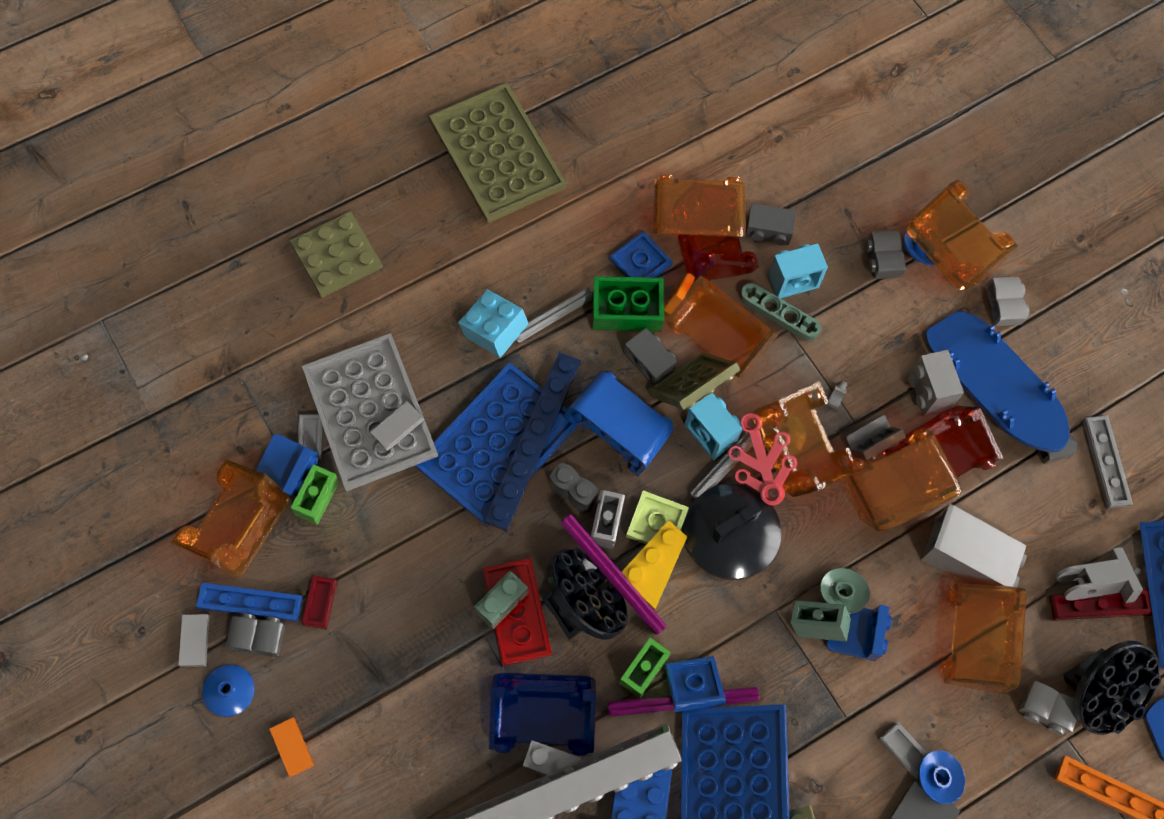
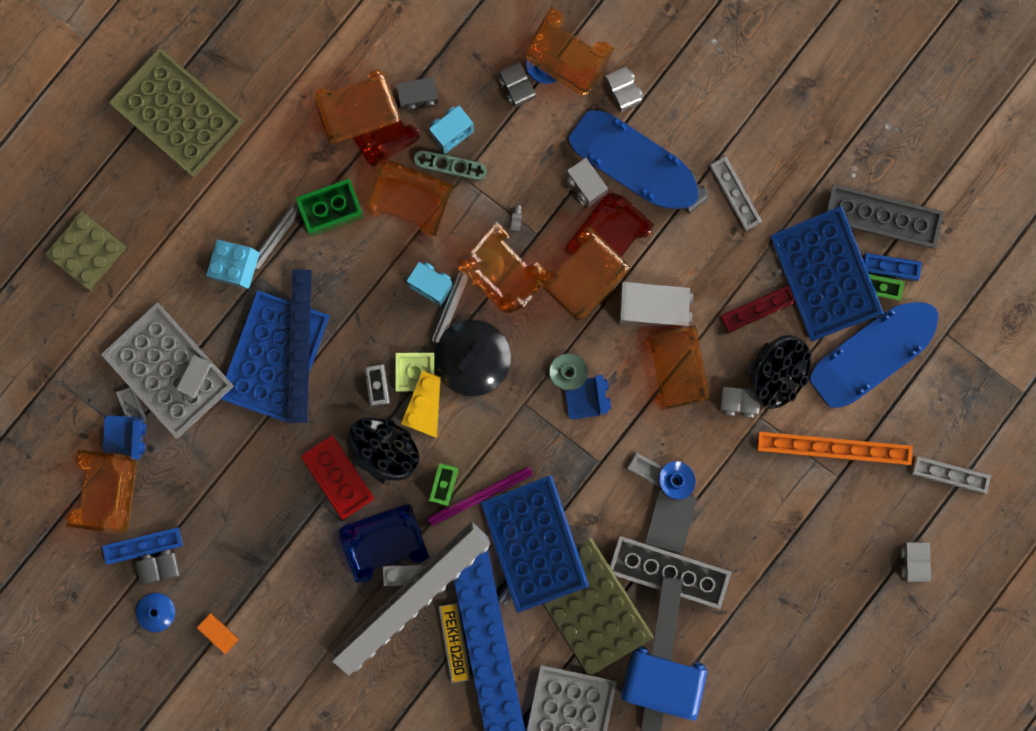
camera: 20 degrees left, 15 degrees up
(194, 640) = (115, 587): light grey tile -> none
(315, 494) = (155, 450): bright green brick -> none
(319, 602) = (192, 526): dark red tile -> none
(501, 600) = (323, 476): sand green brick -> none
(579, 491) = (338, 369): dark grey brick -> none
(613, 574) = (396, 425): magenta axle -> none
(621, 420) = (359, 306): blue windscreen -> none
(640, 258) = (326, 163): blue tile -> none
(650, 356) = (363, 243): dark grey brick -> none
(679, 293) = (366, 184): orange tile -> none
(694, 380) = (402, 254): olive plate -> none
(694, 684) = (483, 481): blue tile -> none
(763, 462) = (476, 299): coral plant -> none
(821, 620) = (557, 402): sand green brick -> none
(873, 438) = (553, 245): dark grey bracket -> none
(1103, 578) = (752, 291): light grey piece -> none

